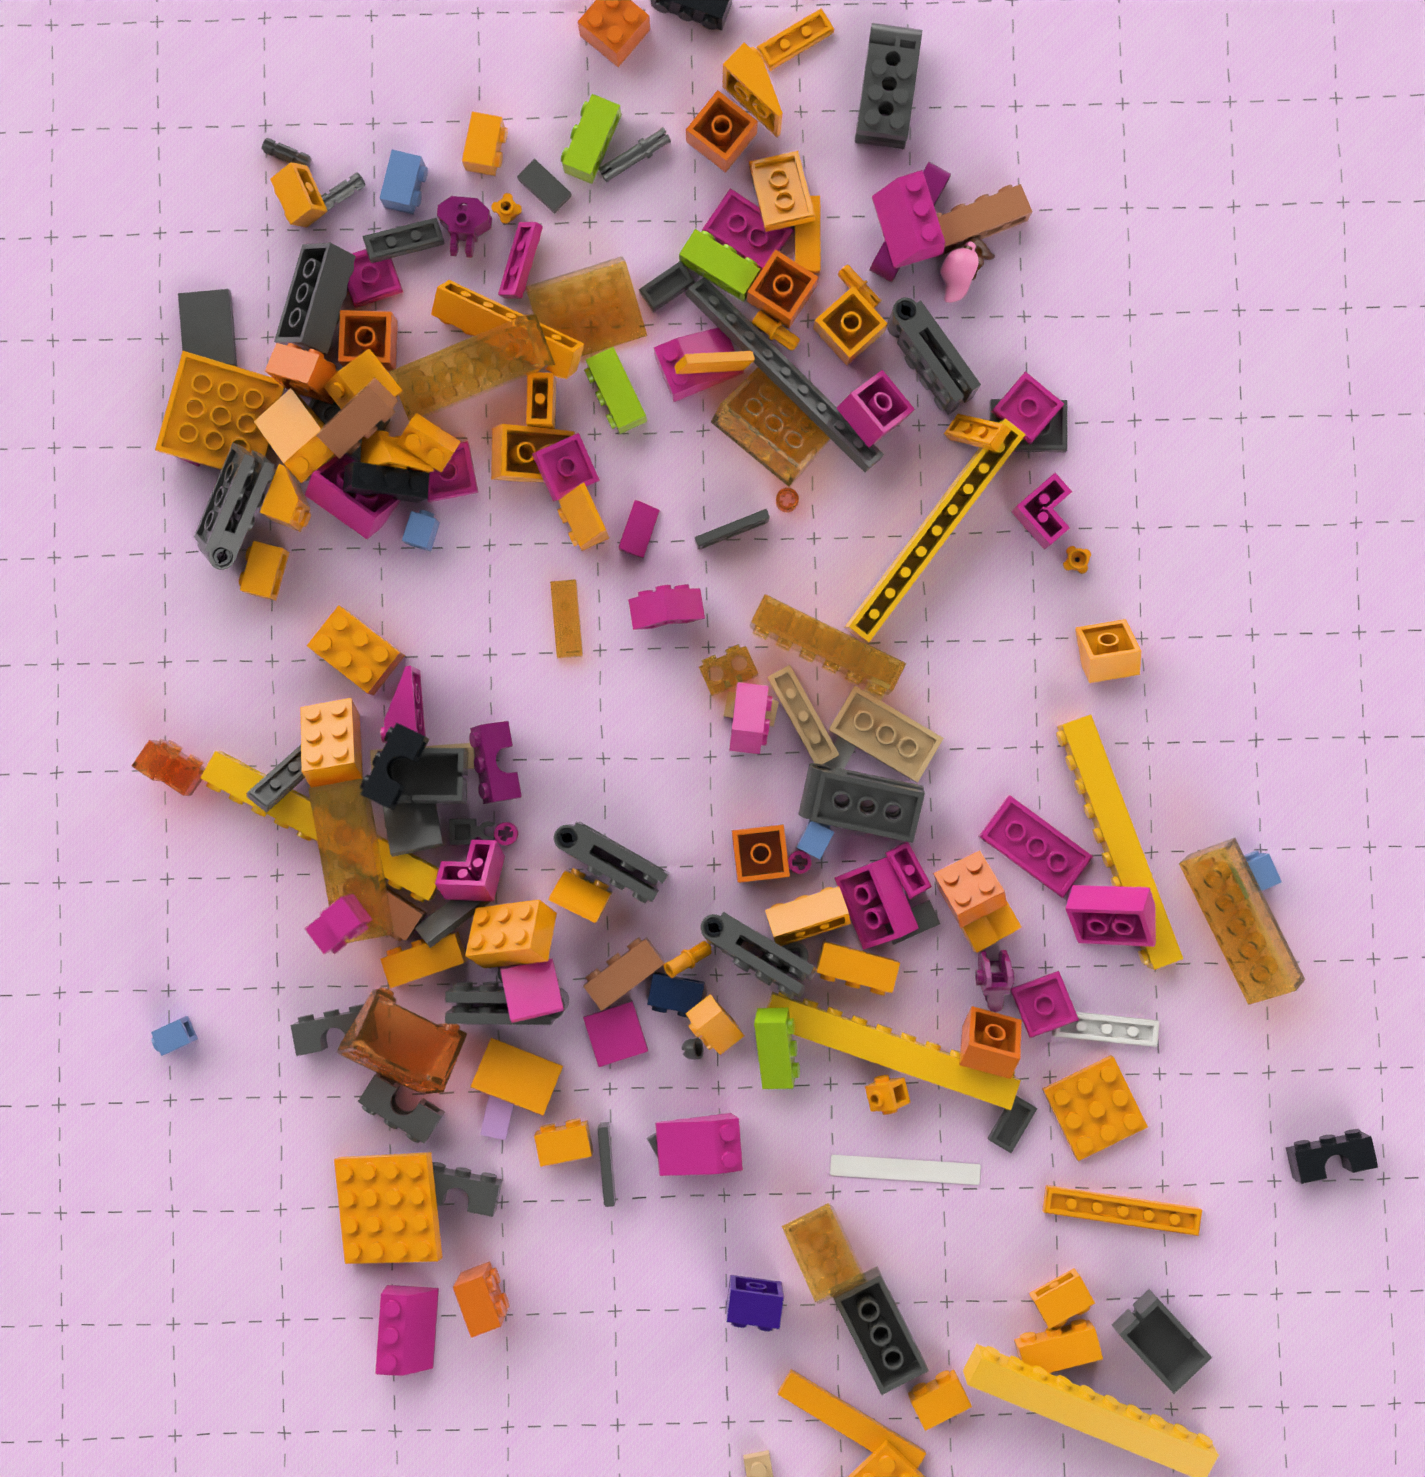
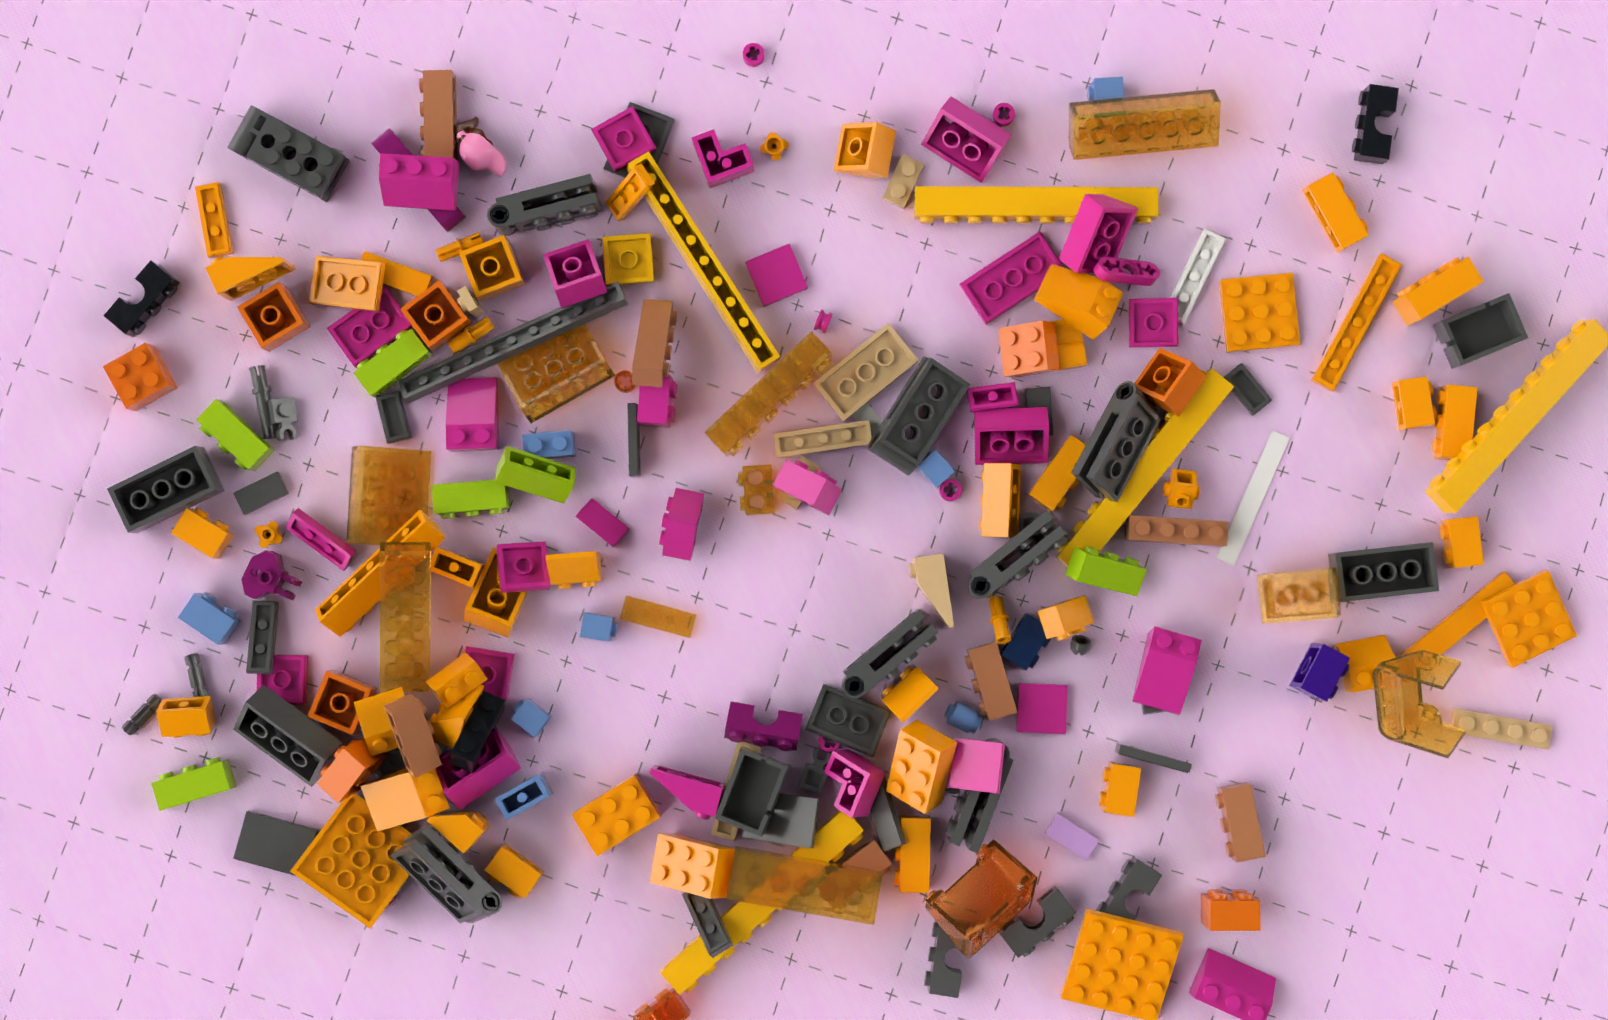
camera: 65 degrees left, 0 degrees up
(236, 227) = (193, 783): none -> lime brick
(337, 923) = (856, 913): dark pink brick -> none
(340, 552) = (523, 796): none -> medium blue brick
(400, 744) = (718, 800): black arch -> none
(512, 91) = (165, 489): none -> dark grey brick
(516, 1076) = (1047, 809): light orange tile -> none
(531, 844) = (847, 720): none -> dark grey tile
(534, 563) = (598, 627): none -> medium blue brick
(574, 1275) = (1240, 822): none -> nougat brick
(577, 958) = (963, 717): none -> medium blue brick
(630, 178) = (283, 413): none -> plate
(660, 444) = (535, 474): none -> lime brick
(695, 448) = (550, 444): none -> medium blue brick
(702, 877) = (932, 581): none -> tan slope
(714, 362) = (480, 400): light orange tile -> none
(748, 1398) = (1400, 703): none -> clear yellow windscreen
(760, 853) = (930, 521): orange brick -> none
(779, 536) = (655, 404): none -> dark pink brick
(781, 1351) = (1364, 658): none -> light orange slope
(806, 316) = (469, 302): none -> tan plate
(835, 510) = (653, 342): none -> nougat brick
(843, 1104) = (1176, 531): none -> nougat brick
(909, 457) = (628, 259): none -> yellow plate
(909, 1012) = (1117, 442): none -> dark grey hinge
(920, 672) = (823, 321): none -> dark pink bush
(949, 609) = (776, 275): none -> dark pink tile
(995, 978) = (1115, 357): magenta hinge -> none
(1039, 921) = (1079, 299): none -> light orange slope
(1081, 942) = (1142, 272): none -> dark pink beam
(1090, 700) = (903, 181): none -> tan plate
(1157, 747) = (965, 139): none -> dark pink slope
(1160, 497) = (746, 52): none -> dark pink bush
(1186, 1281) = (1436, 289): none -> light orange brick
(1195, 768) = (1004, 106): none -> dark pink bush
(1226, 1148) = (1335, 212): none -> light orange brick

